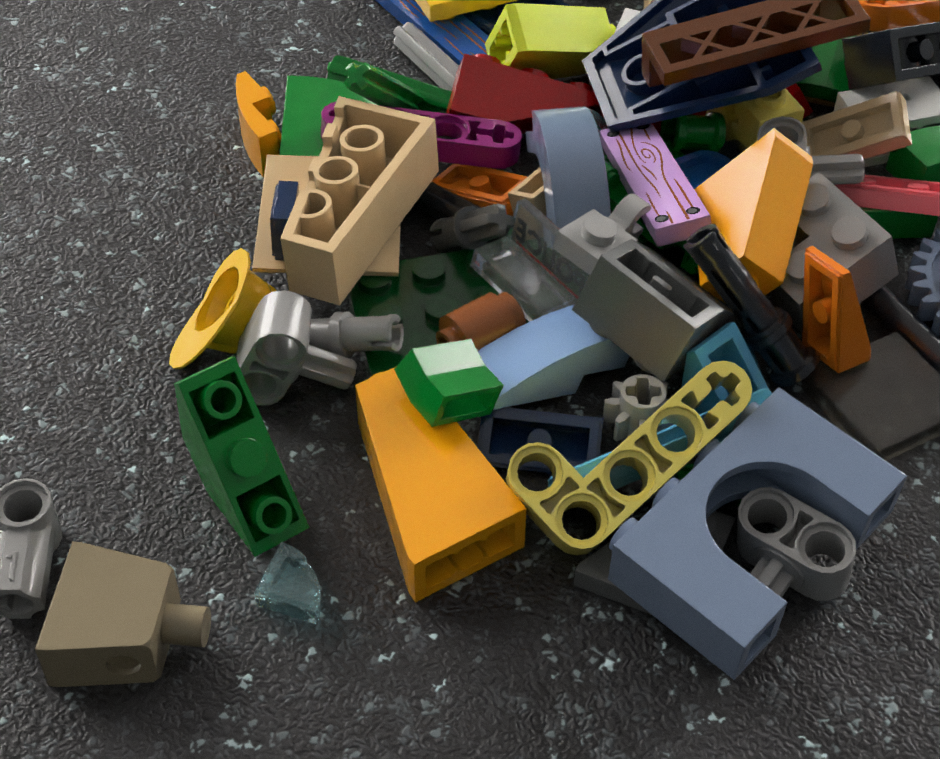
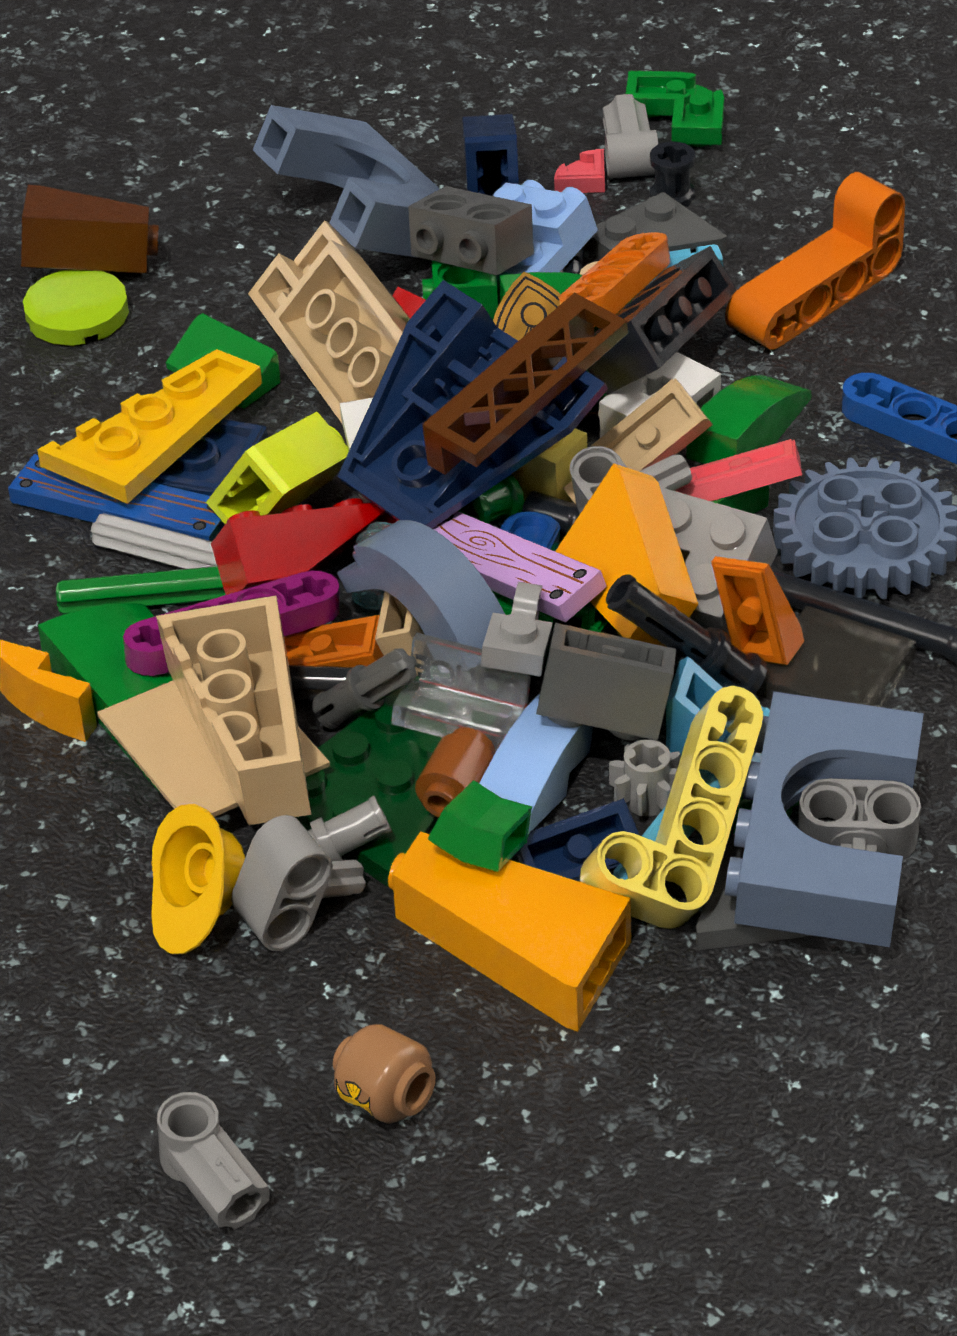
camera: 30 degrees left, 5 degrees down
(115, 620) = (349, 1167): dark tan torso -> none
(211, 551) = (383, 1073): none -> medium nougat head
(237, 456) = (331, 981): green slope -> none
(283, 202) = (196, 760): dark blue tile -> none
(290, 586) = (466, 1072): clear light blue tile -> none
(381, 87) = (173, 591): green axle -> none

